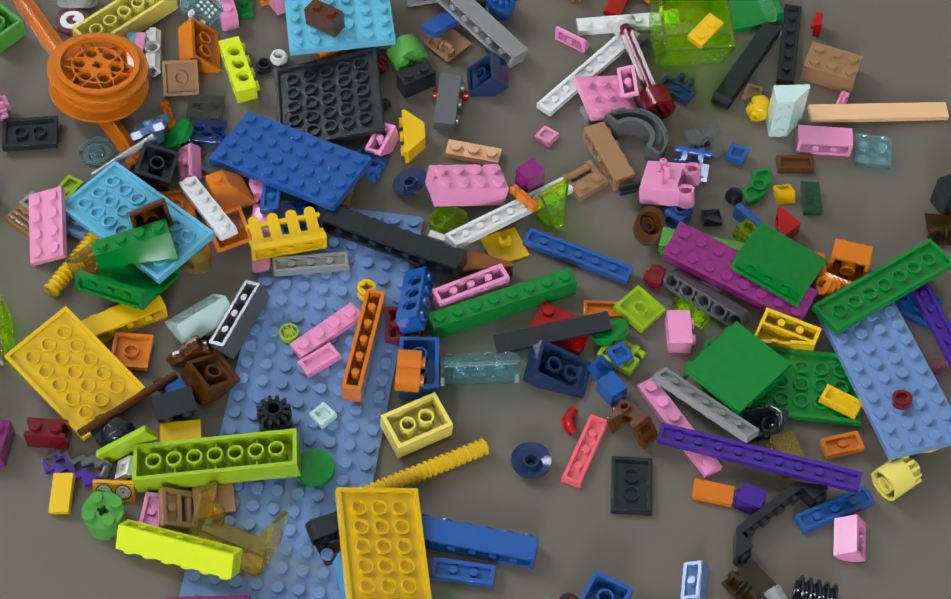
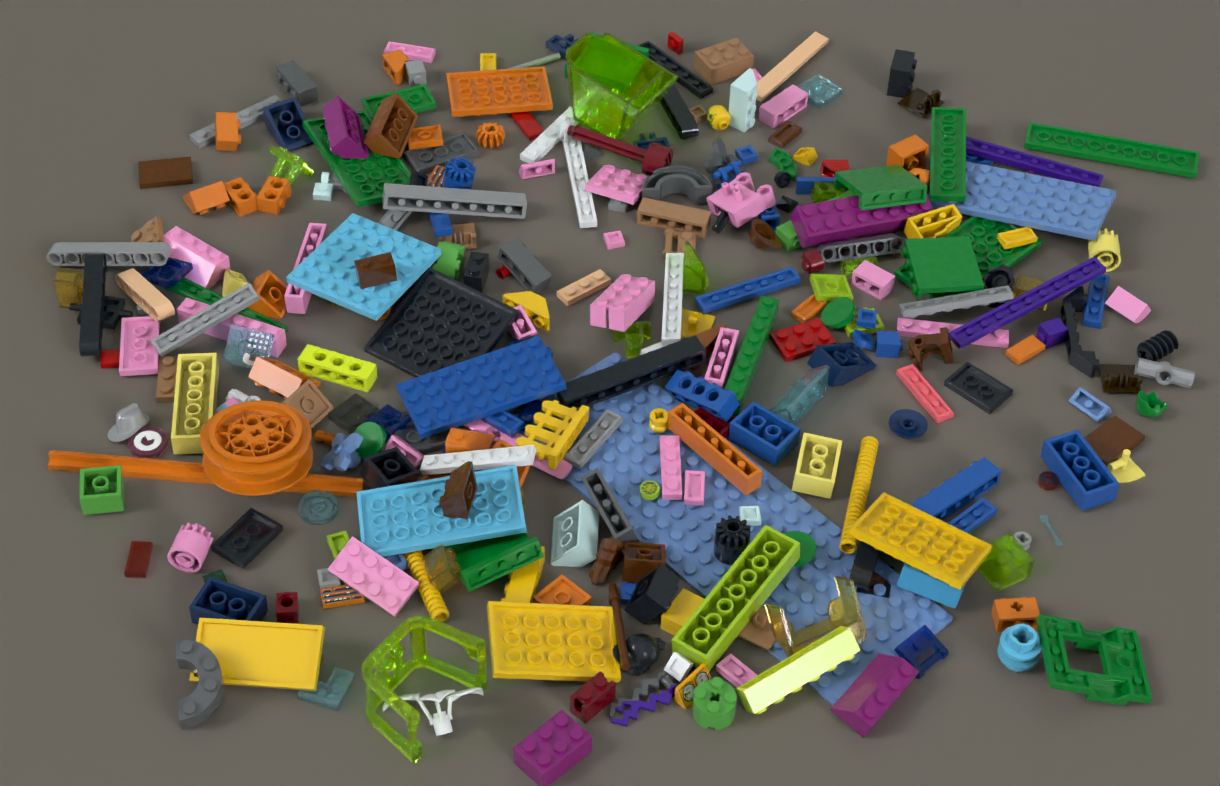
camera: 50 degrees left, 10 degrees down
(61, 493) = (662, 722): yellow tile -> none
(125, 444) = (664, 645): lime tile -> none
(126, 154) = (351, 487): light grey bar -> none
(135, 246) = (482, 517): green wedge -> none
(171, 509) = (757, 657): medium nougat plate -> none
(264, 66) = (351, 350): black plate -> none
(278, 57) = (352, 338): white plate -> none
(408, 370) = (773, 432): orange brick -> none
(409, 181) = (571, 332): dark blue dish -> none
(487, 76) = (523, 228): dark blue slope -> none
(524, 198) = (672, 279): orange axle -> none
(530, 176) = (655, 266): magenta brick -> none
(553, 332) = (807, 343): black tile -> none
(568, 422) = (890, 385): red arm -> none
(628, 81) = (629, 159): bright pink slope -> none
(705, 30) = (649, 80): yellow plate -> none
(811, 198) = (826, 145): clear green plate -> none
(841, 445) = (1049, 262): orange plate -> none
(901, 399) = (1055, 201): dark red tile -> none

